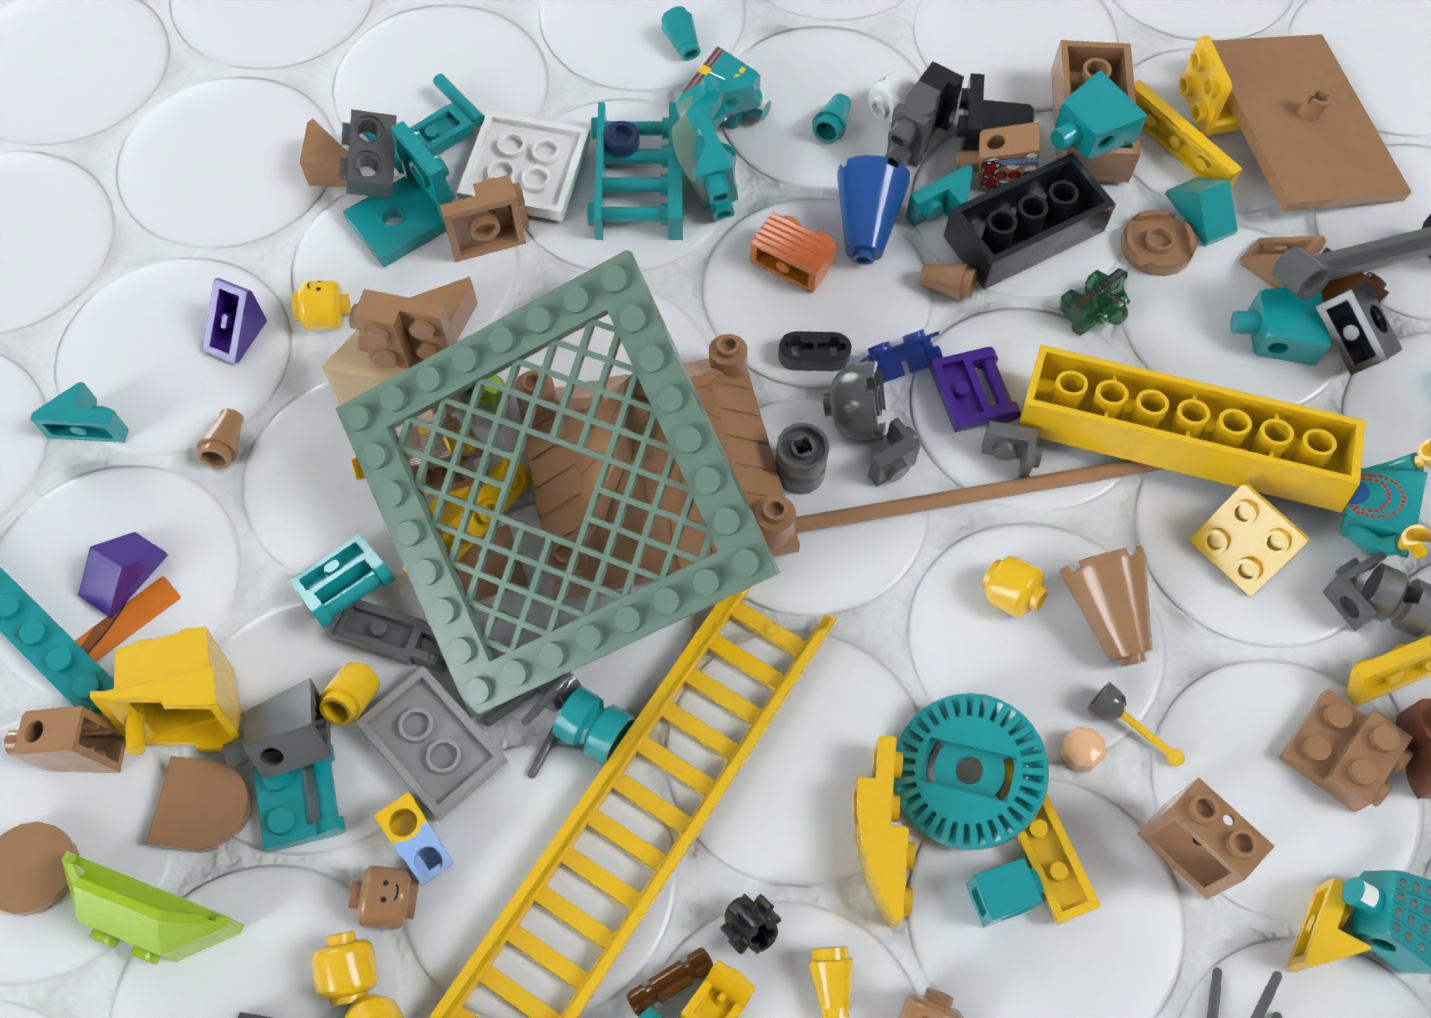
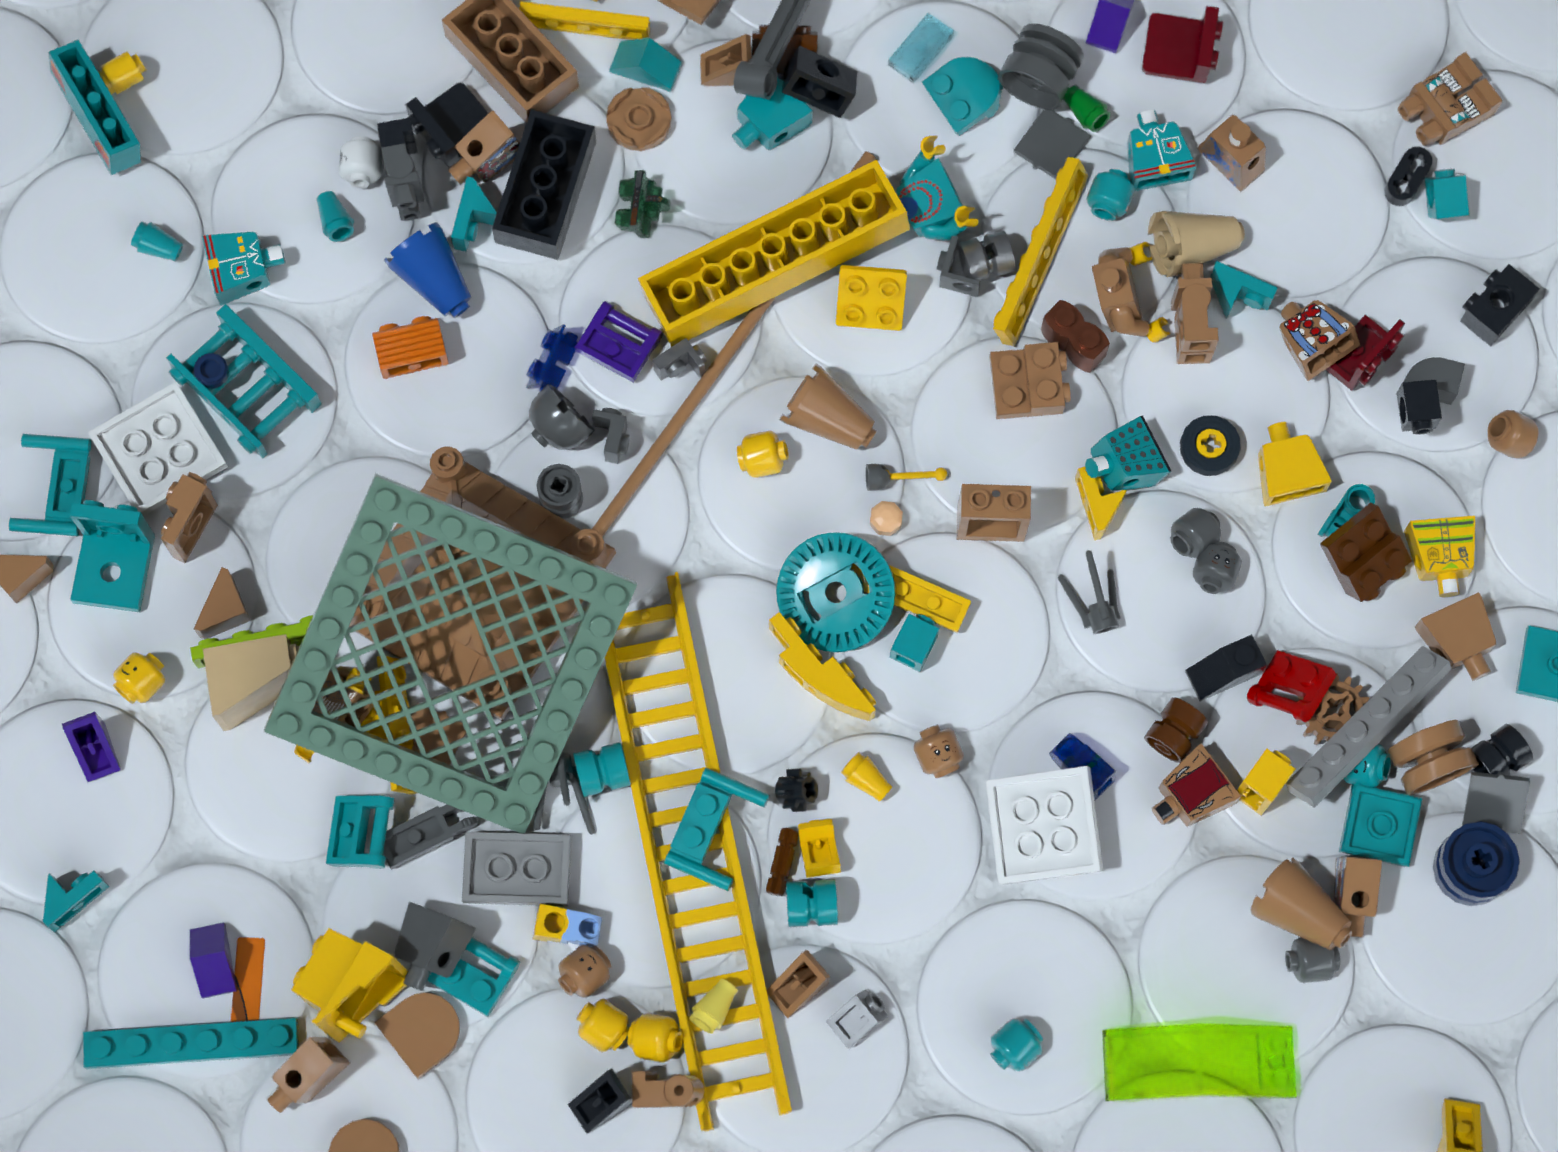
camera: 45 degrees left, 10 degrees up
(141, 913) = (460, 1110): lime wedge -> none
(221, 441) = (178, 823): medium nougat cone -> none
(348, 693) = (441, 888): yellow brick -> none
(374, 154) = (66, 538): dark grey brick -> none
(400, 328) = (244, 649): medium nougat plate -> none
(631, 865) = (701, 824): none -> teal plate
(701, 155) = (284, 334): teal hips -> none
(814, 351) = (497, 413): black beam -> none
(949, 279) = (531, 274): medium nougat cone -> none
(1097, 119) = (528, 73): teal torso -> none

